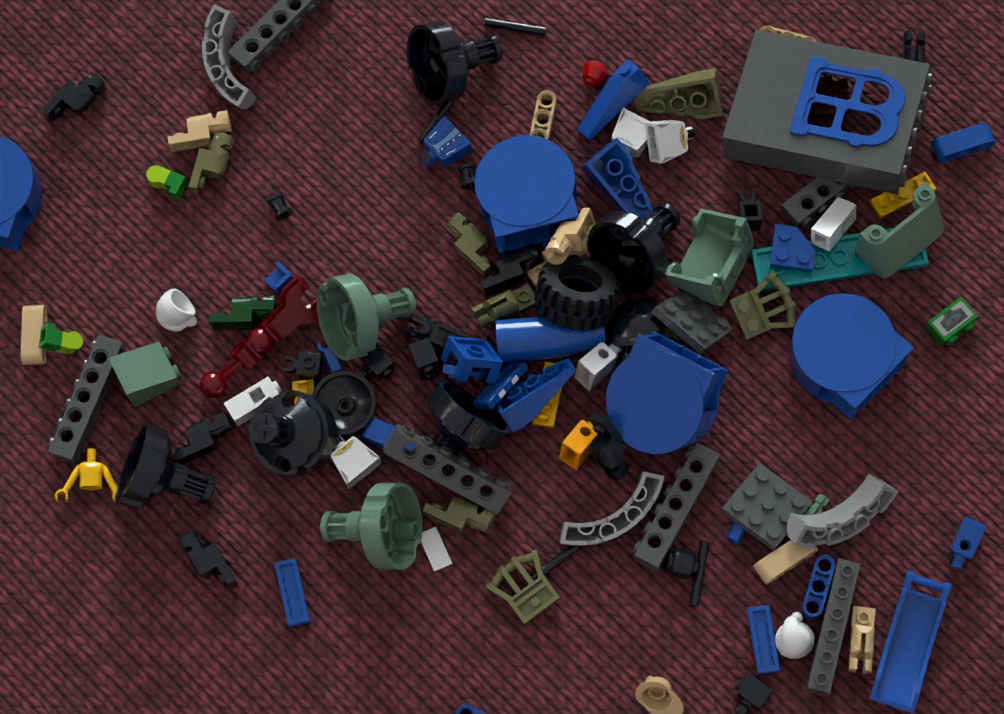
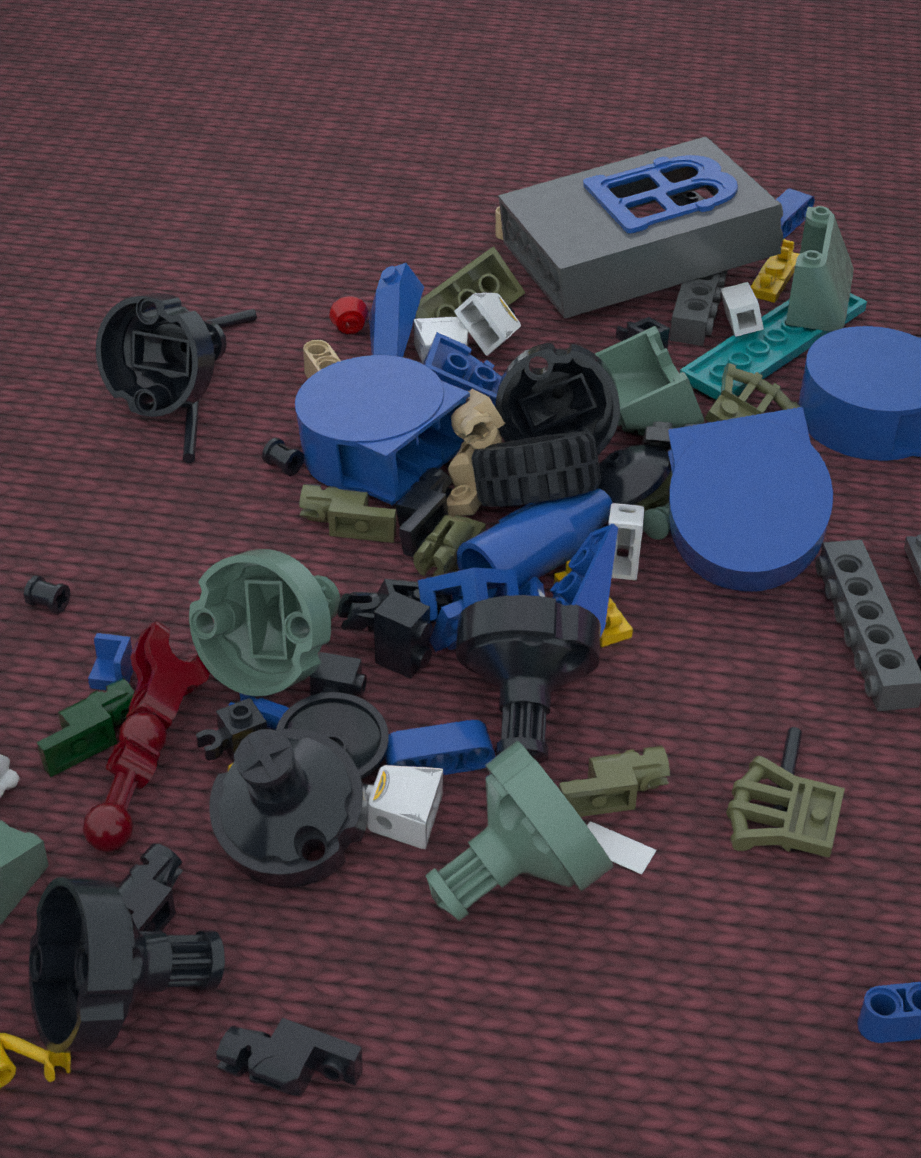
camera: 45 degrees left, 30 degrees down
(245, 404) = (185, 816): white brick -> none
(292, 592) = (464, 1022): blue plate -> none
(445, 144) = (226, 441): blue torso -> none
(471, 489) = (469, 708): dark grey brick -> none
(576, 445) = (688, 609): light orange torso -> none
(608, 447) = (730, 589): black plate -> none
(620, 521) = (823, 656): light grey brick -> none
(791, 249) = (722, 346): blue plate -> none

